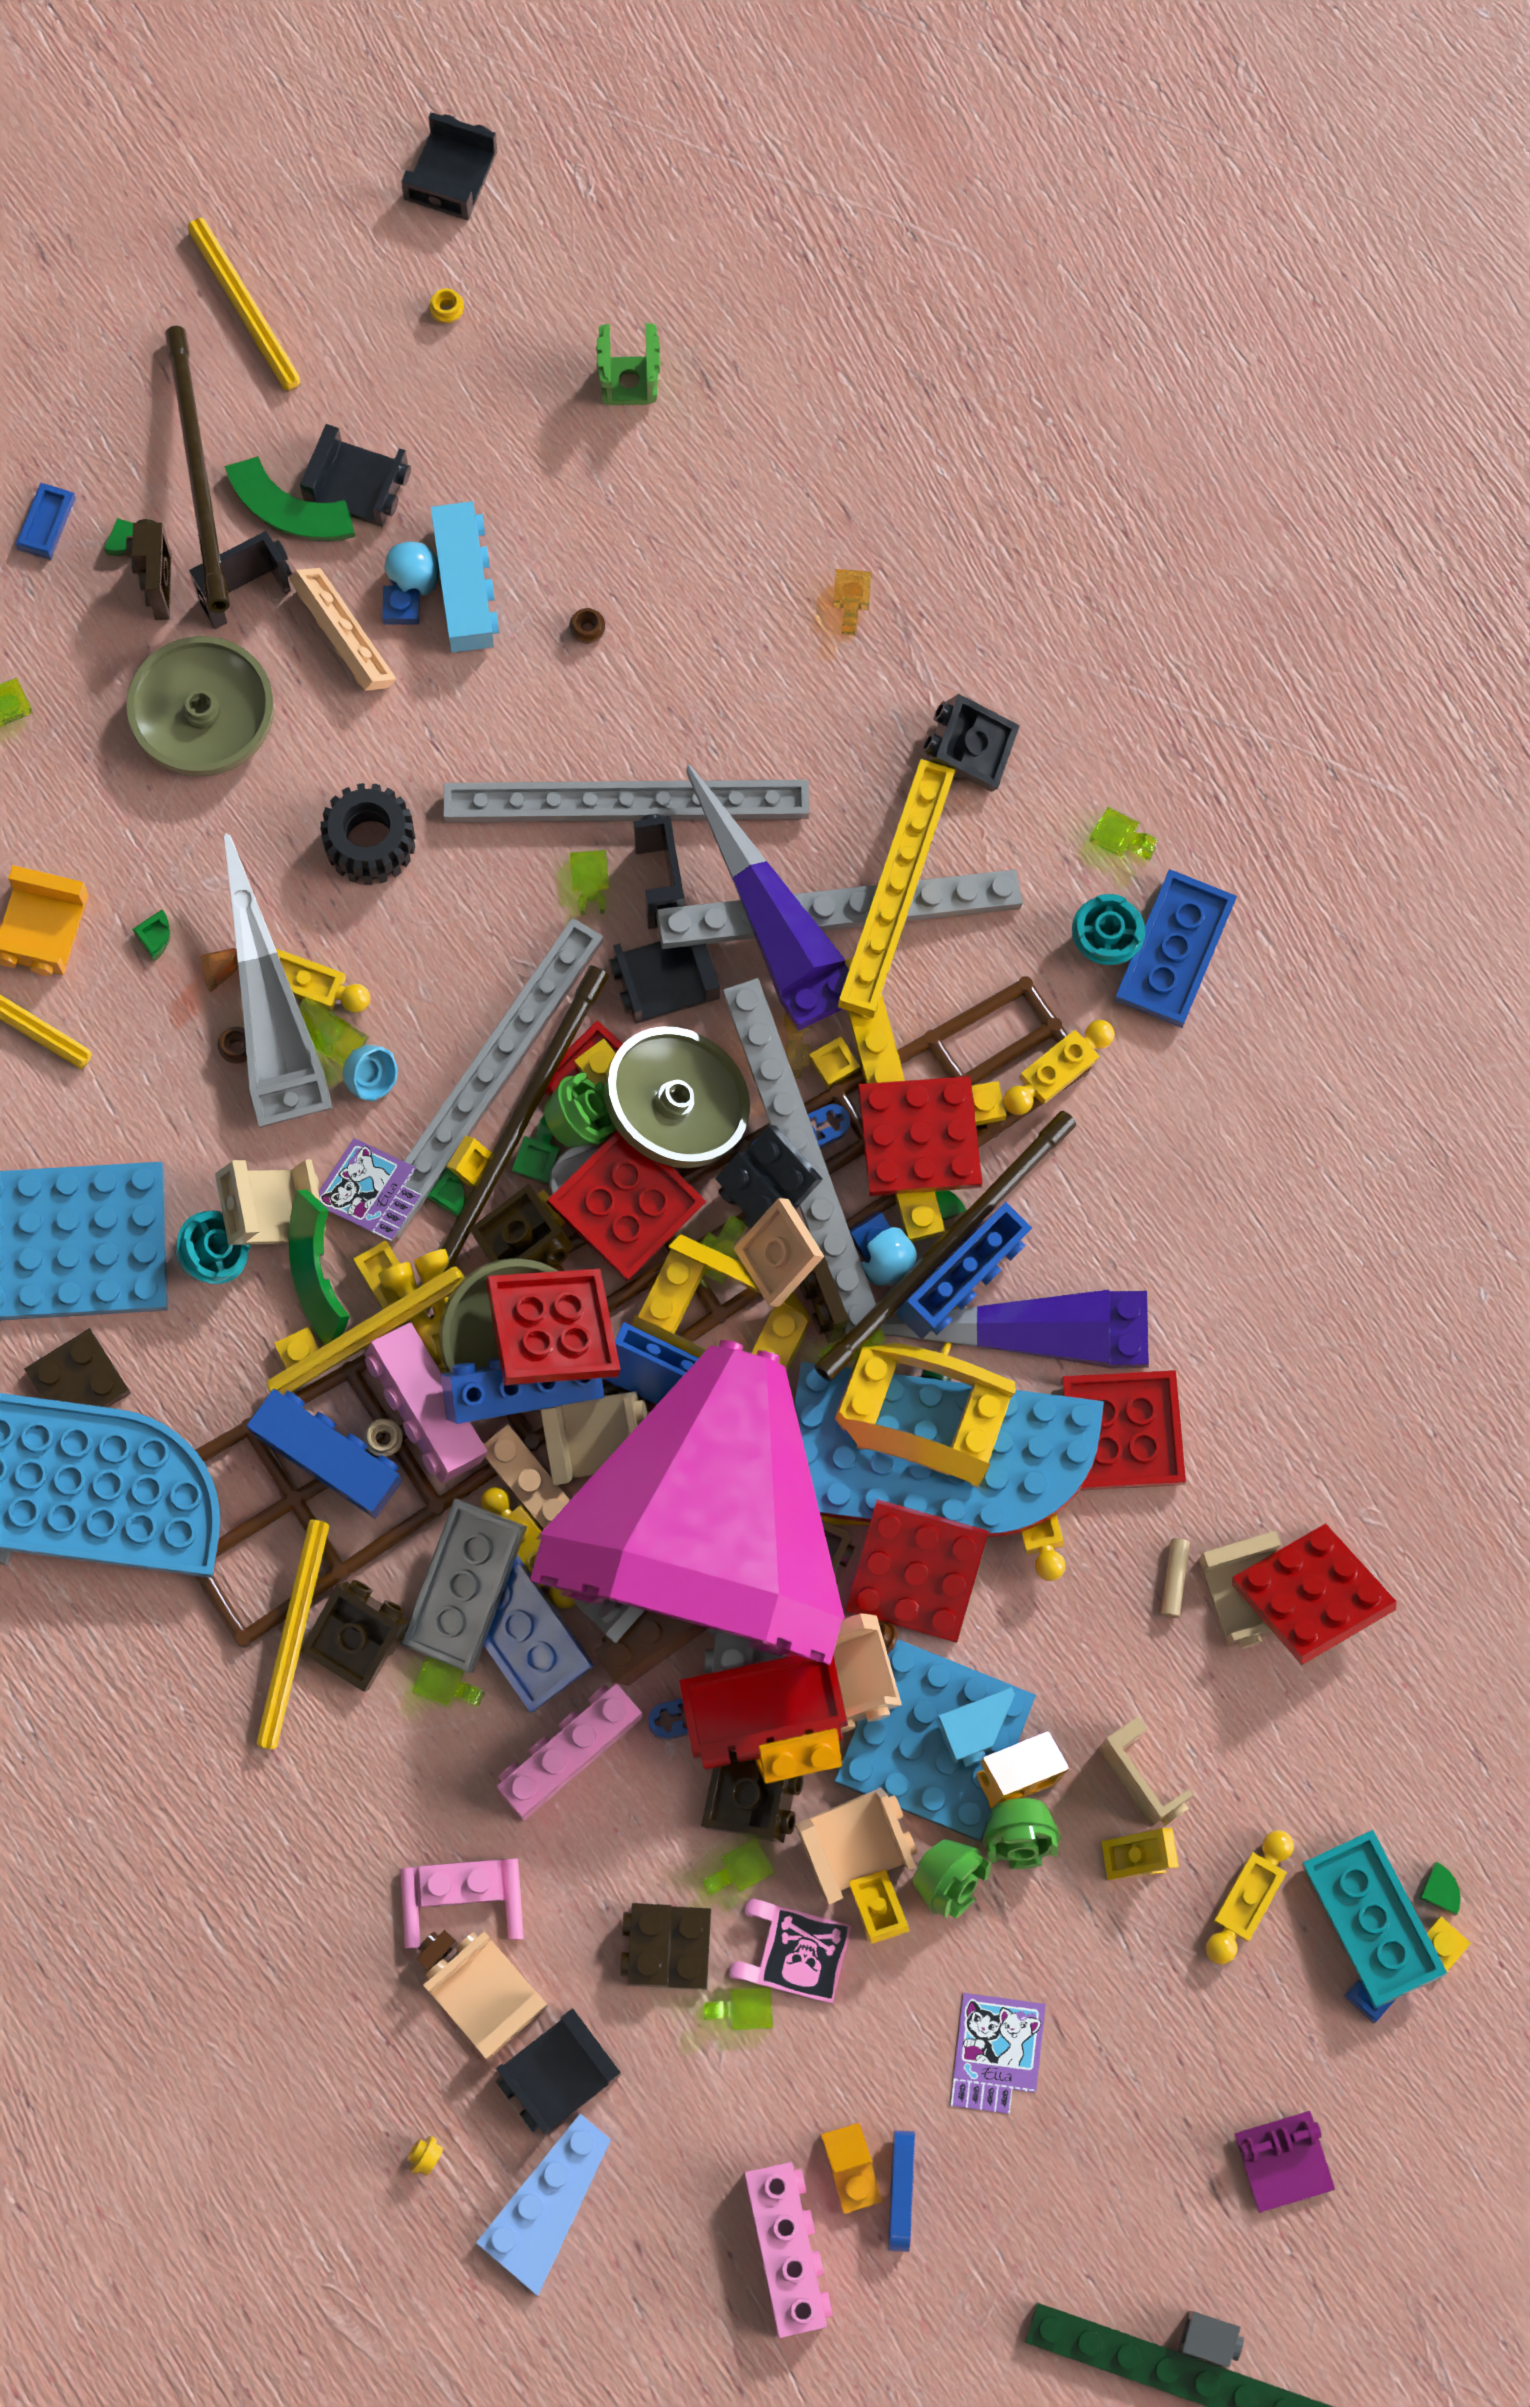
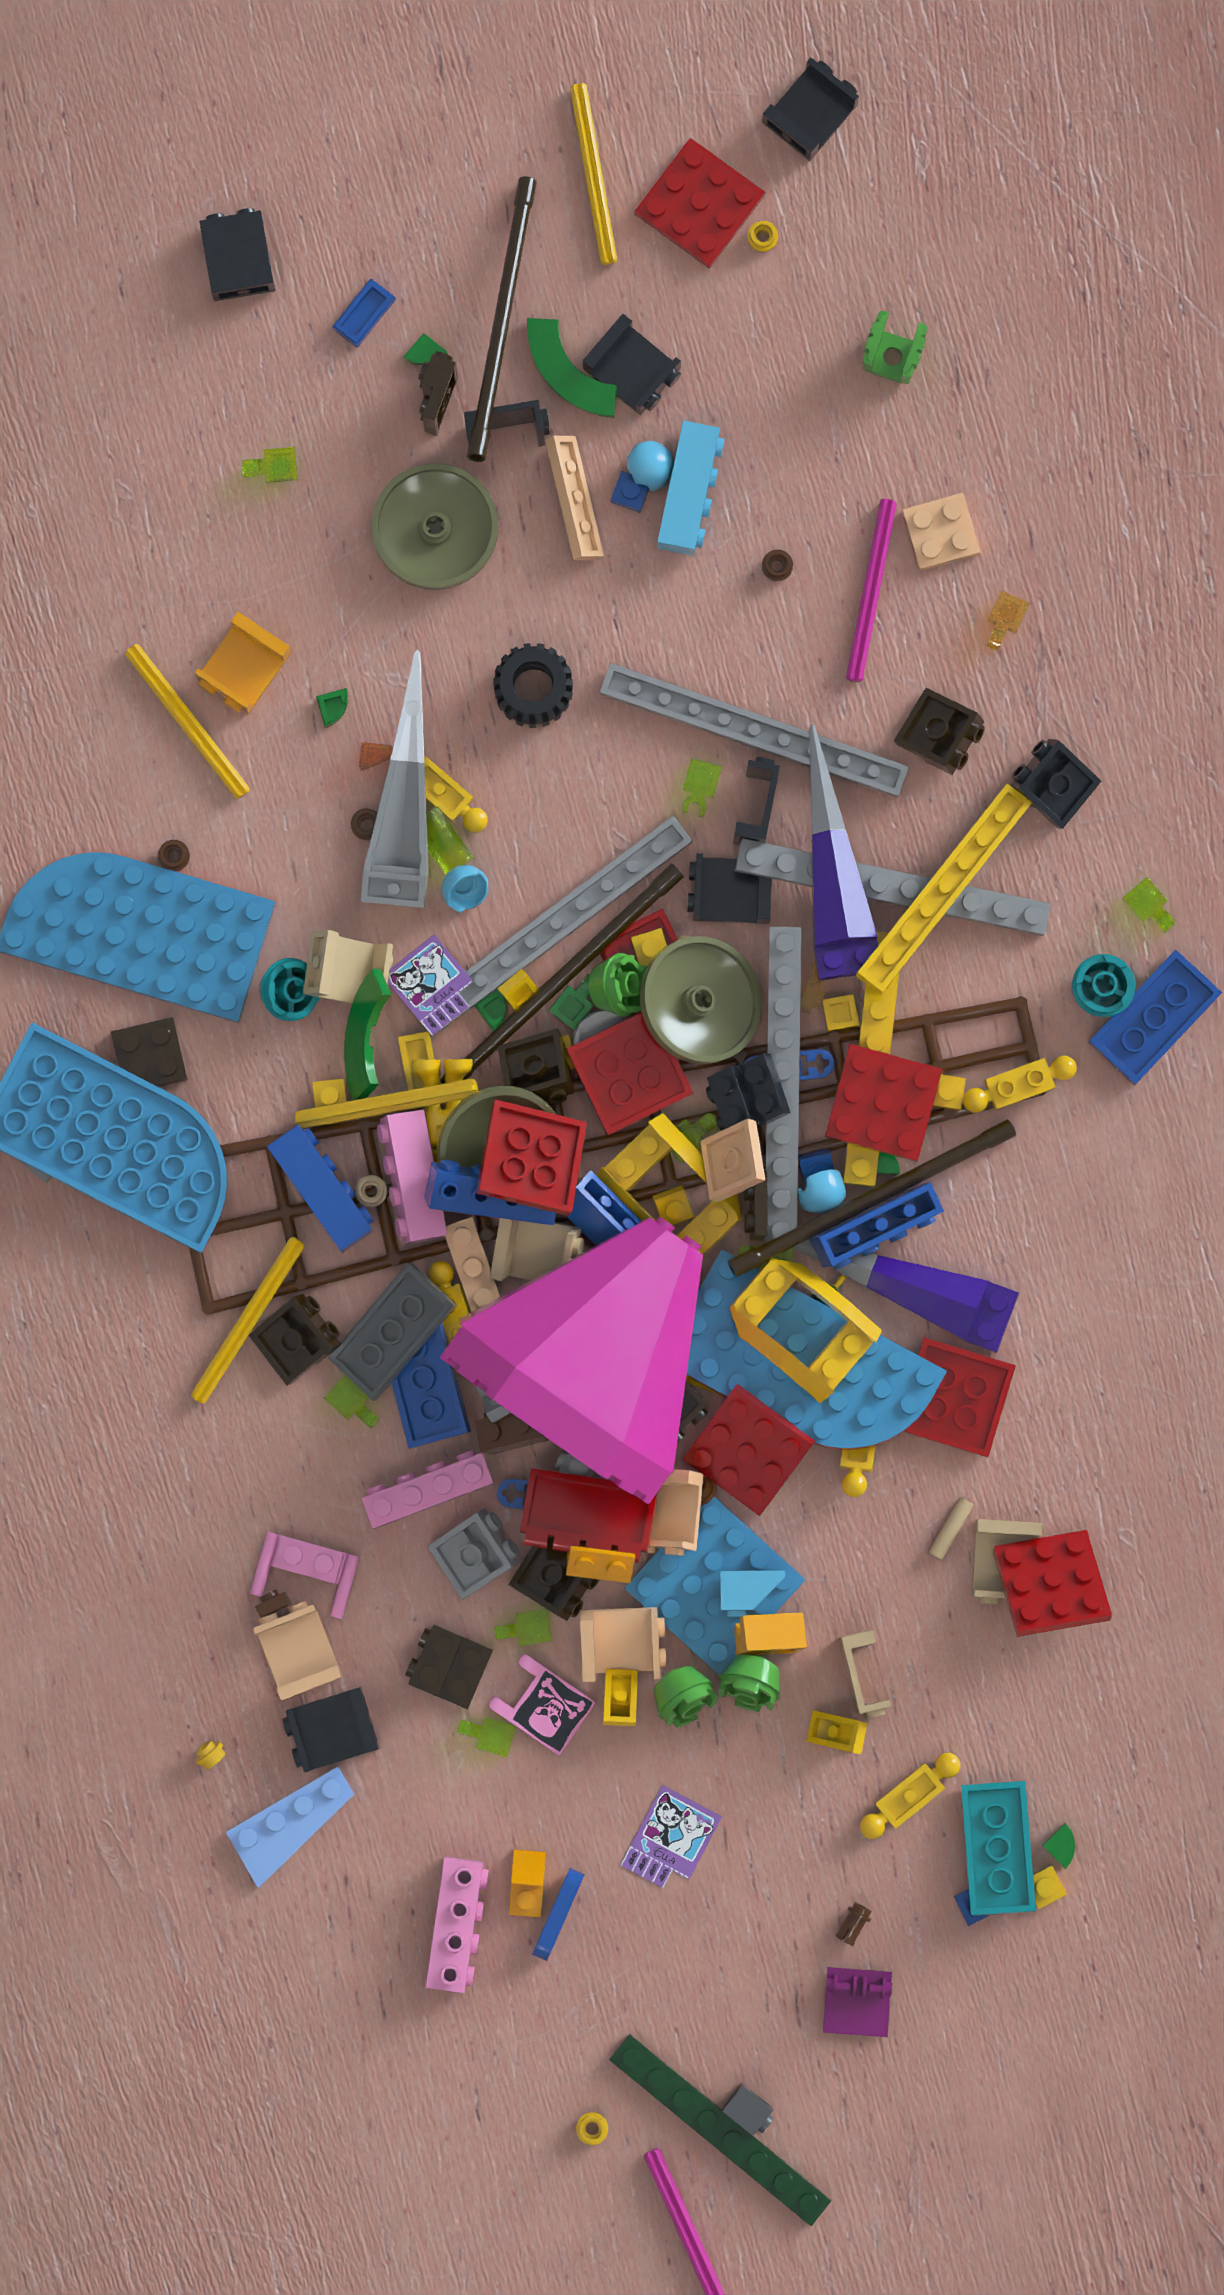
camera: 25 degrees right, 10 degrees up
(26, 1143) = (173, 845): none -> reddish brown plate
(367, 296) = (699, 203): none -> red plate
(649, 1803) = (475, 1553): none -> light grey plate
(697, 618) = (871, 590): none -> dark pink axle
(729, 1327) = (673, 1205): none -> yellow plate
(748, 535) = (941, 532): none -> light nougat plate
(828, 732) = (940, 731): none -> dark brown plate
(1245, 2067) = (854, 1923): none -> reddish brown pin

